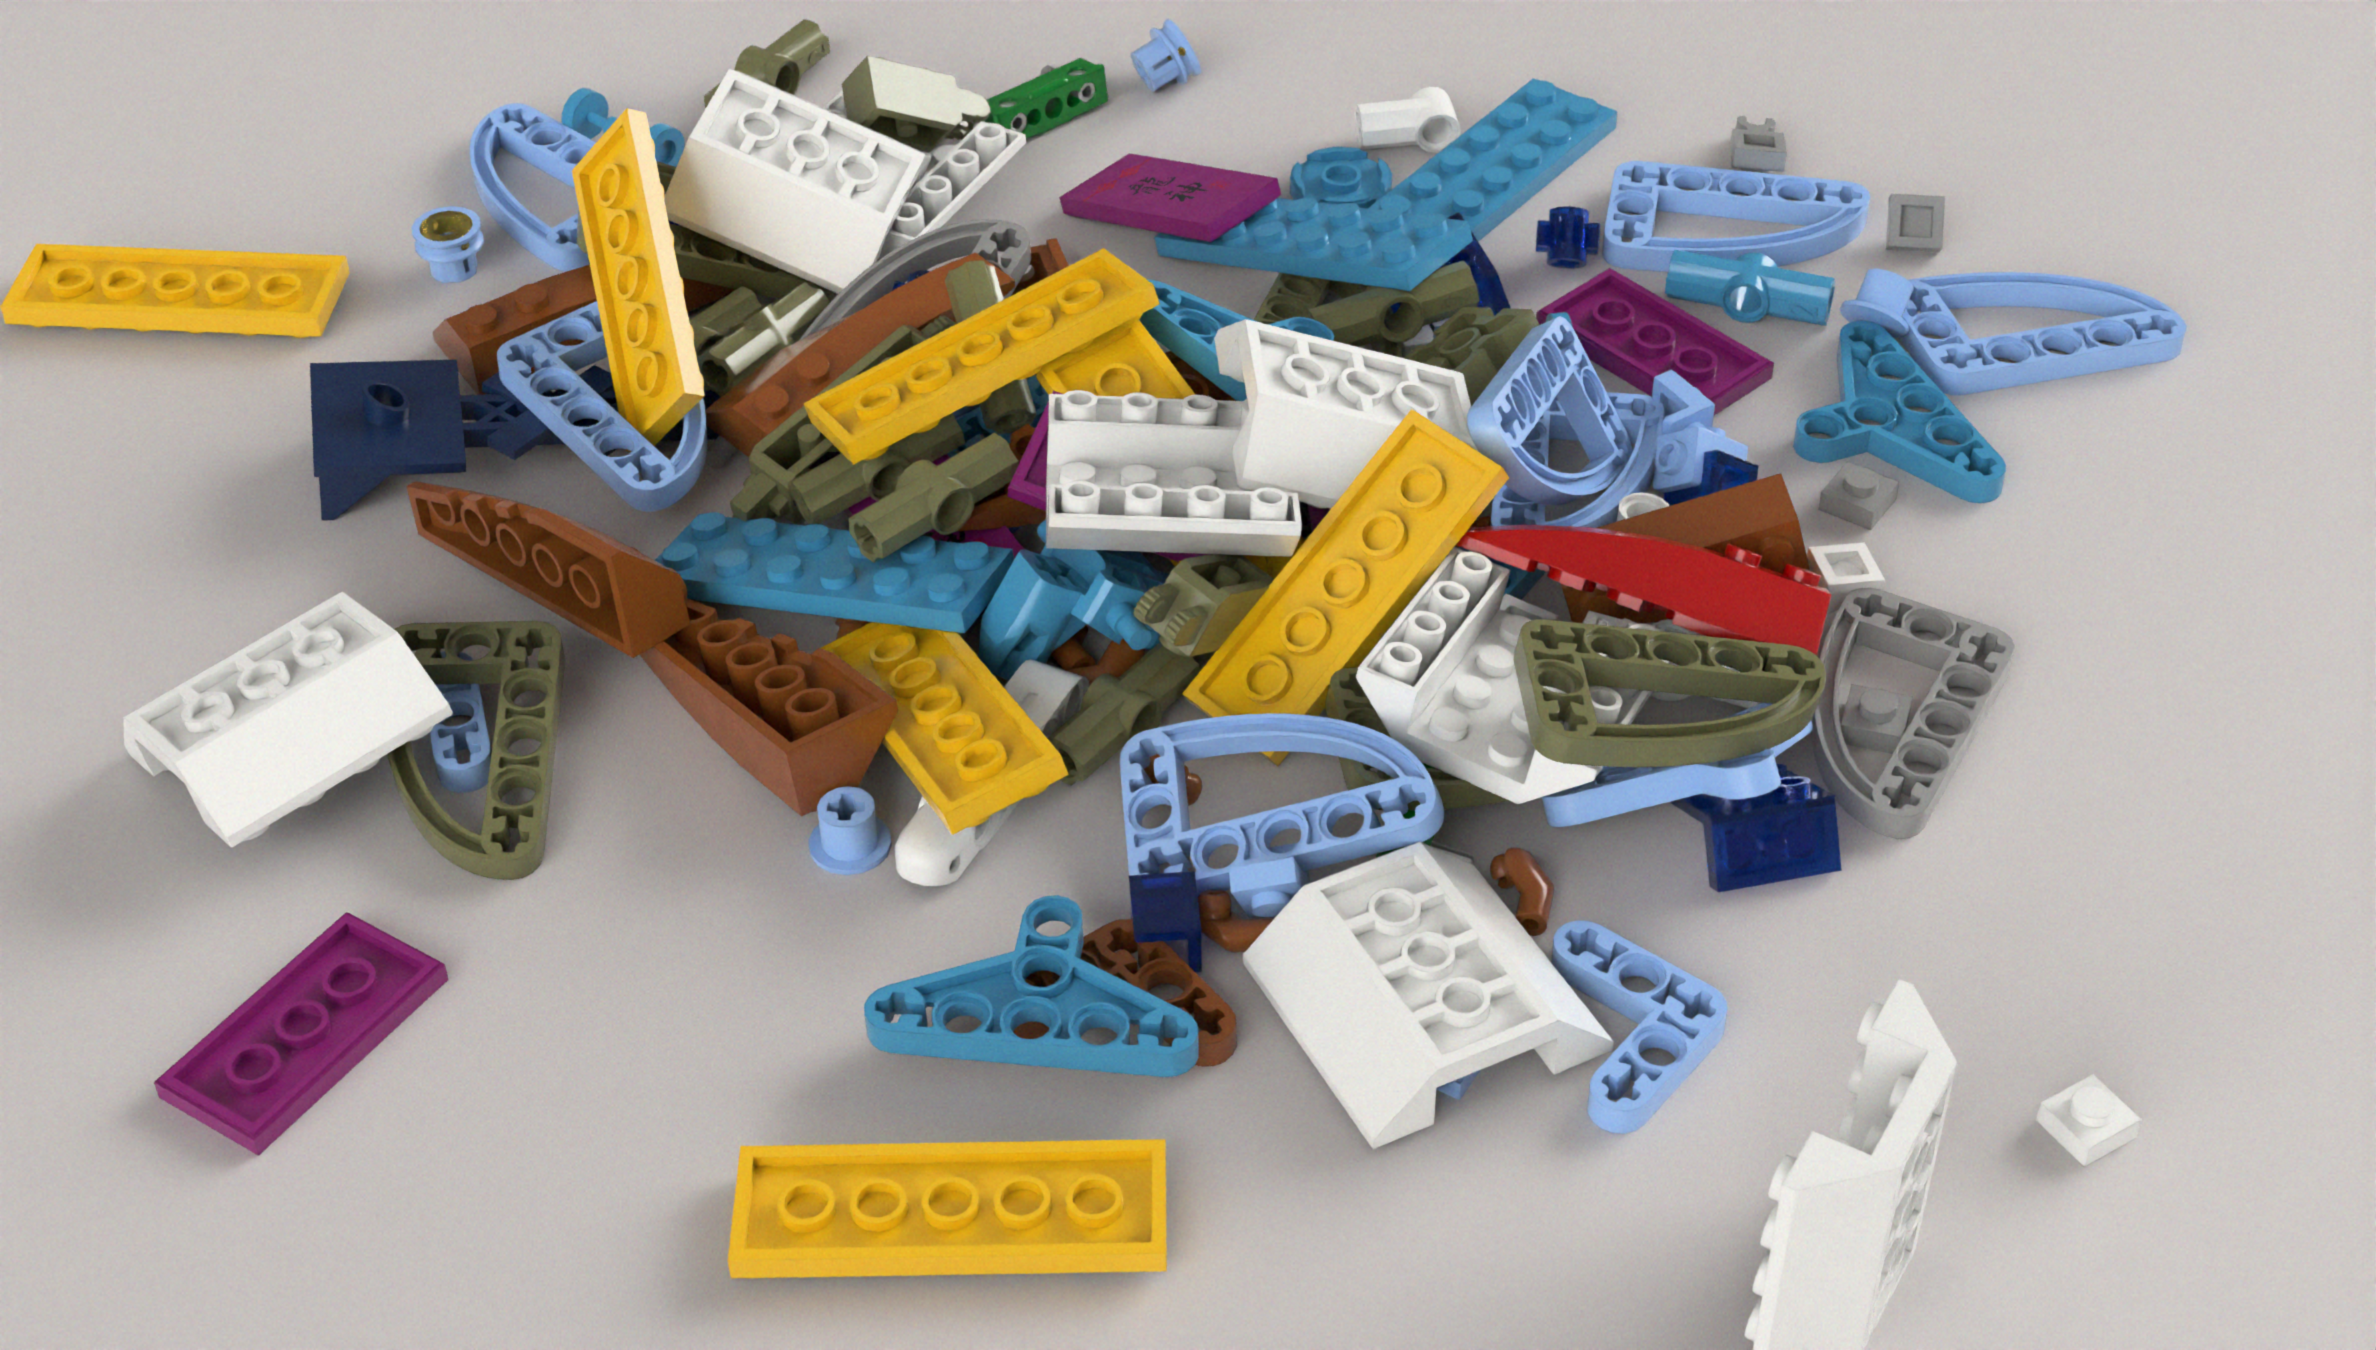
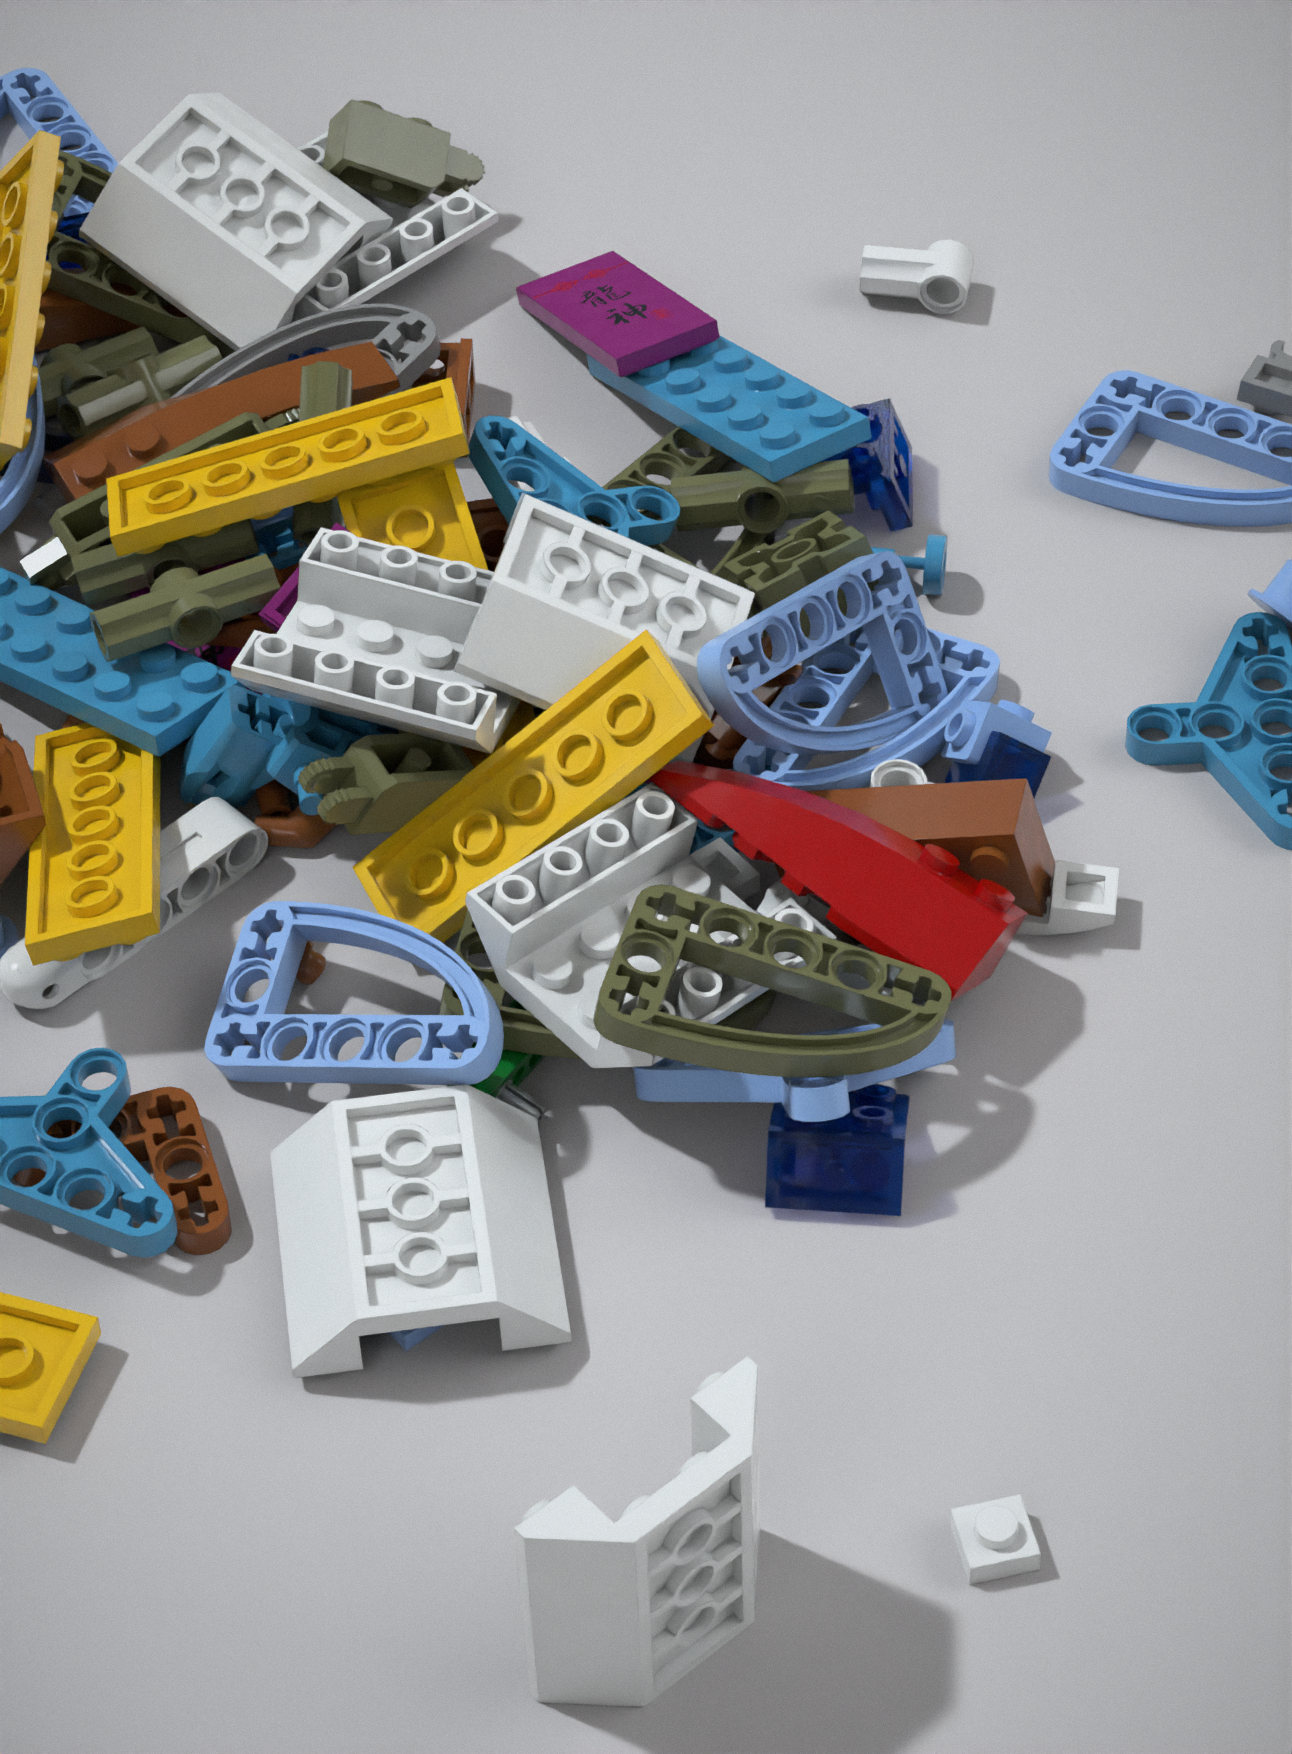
camera: 20 degrees right, 5 degrees up
(588, 114) = (97, 97): dark azure wheel -> none
(784, 59) = (303, 80): olive piece -> none
(1050, 98) = (555, 172): green piece -> none
(1121, 708) = (278, 870): olive piece -> none
(1167, 910) = (215, 1091): clear blue panel -> none
(1176, 55) = (713, 154): light blue piece -> none
(1225, 926) = (270, 1113): dark orange arm -> none
(1268, 885) = (315, 1087): light blue bracket -> none
(1341, 177) = (816, 331): dark azure tile -> none
(1504, 157) = (988, 343): dark azure plate -> none
(1536, 890) = (585, 1154): dark orange arm -> none
(1567, 237) = (1006, 447): clear blue gear -> none
(1645, 336) = (1041, 591): magenta tile -> none
(1660, 1020) = (630, 1331): light blue beam -> none
(1682, 403) = (1018, 673): light blue bracket -> none
(1750, 287) = (1172, 547): dark azure piece -> none
(1858, 495) = (1156, 812): light grey plate -> none
(1875, 718) = (1029, 1063): light grey plate -> none
(1954, 658) = (1145, 1027): light grey beam -> none

